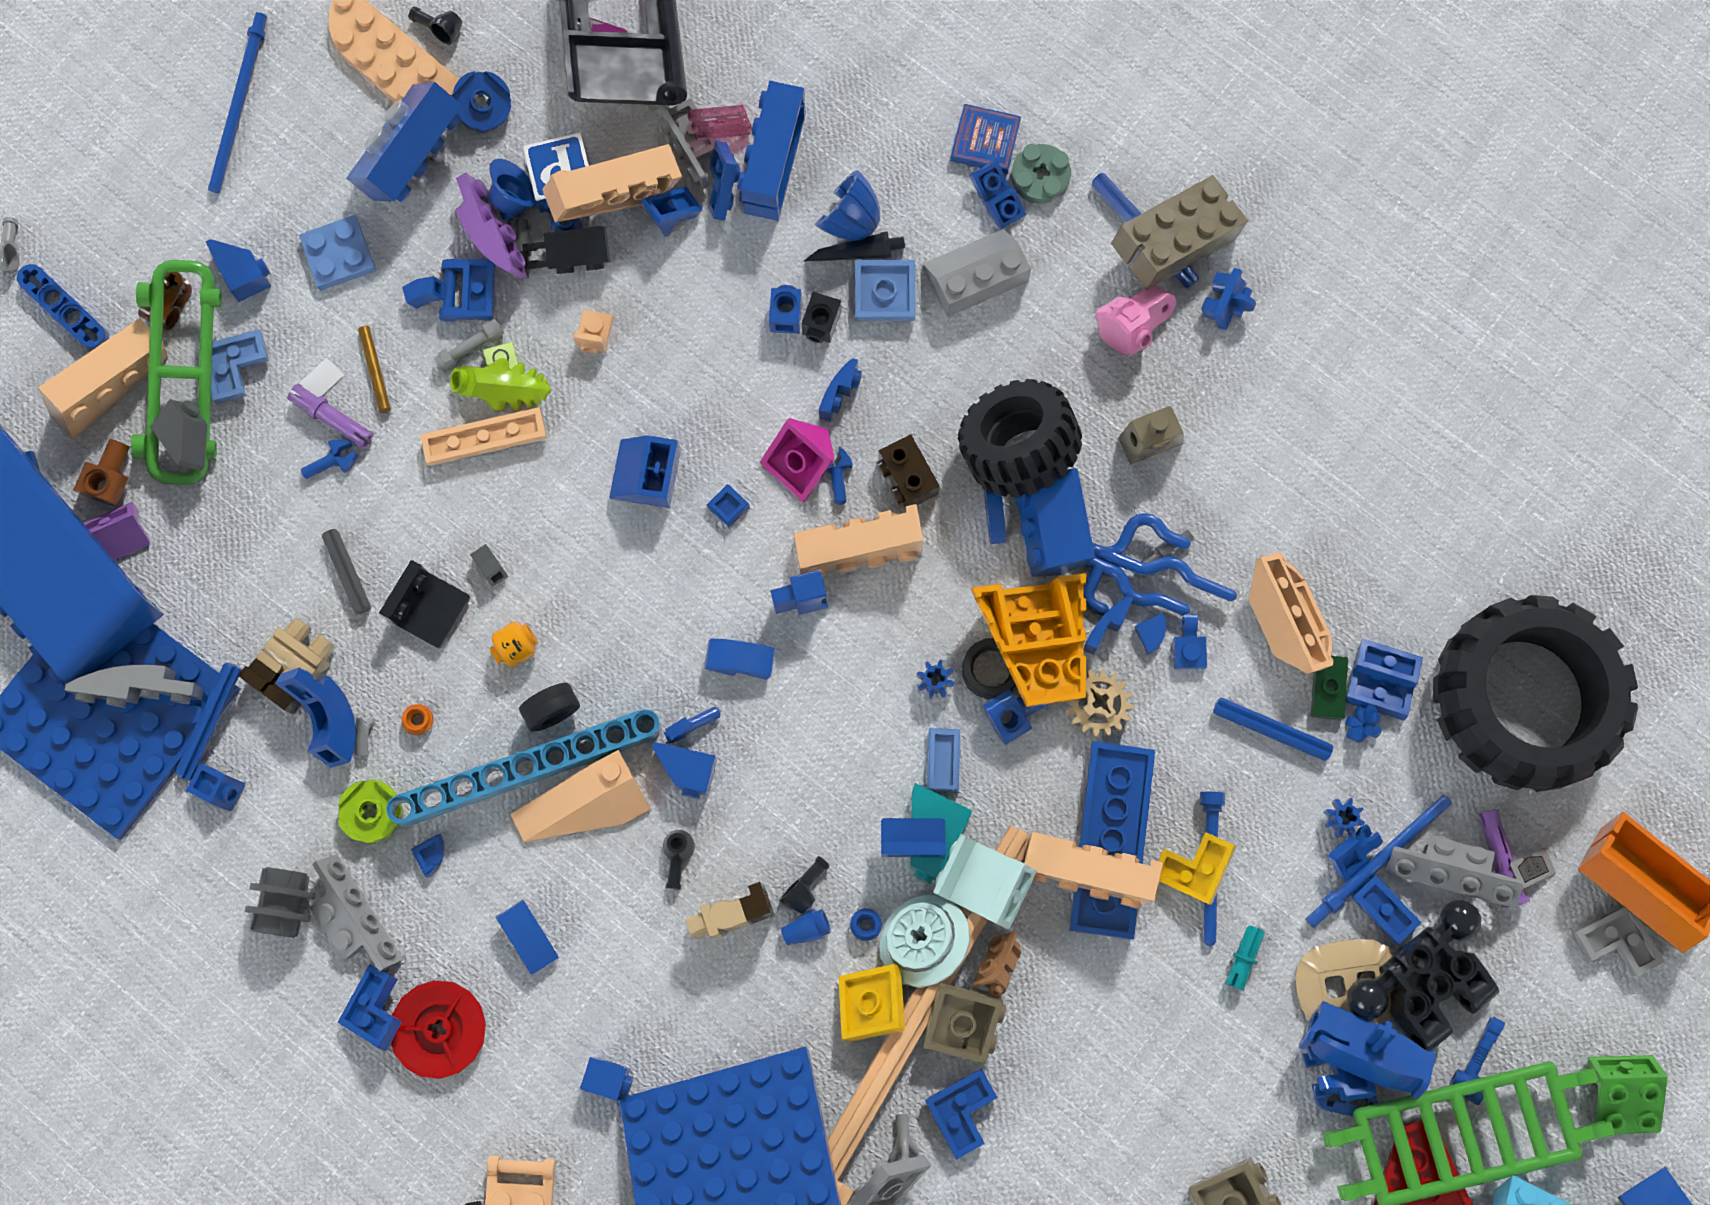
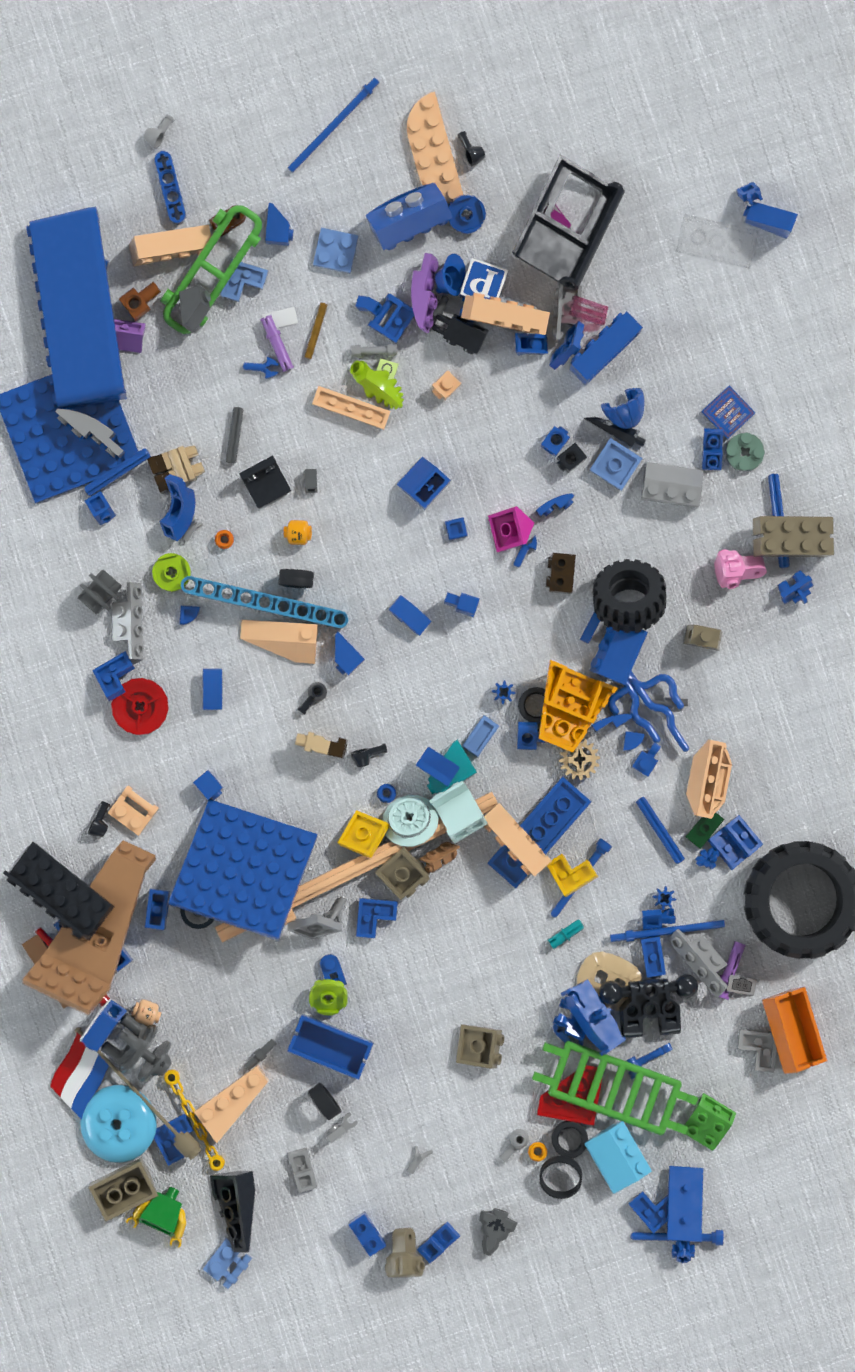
camera: 25 degrees right, 10 degrees up
(683, 727) = (359, 633): blue bar -> none
(807, 928) = (357, 776): blue cone -> none
(860, 542) = (510, 594): light nougat wedge -> none

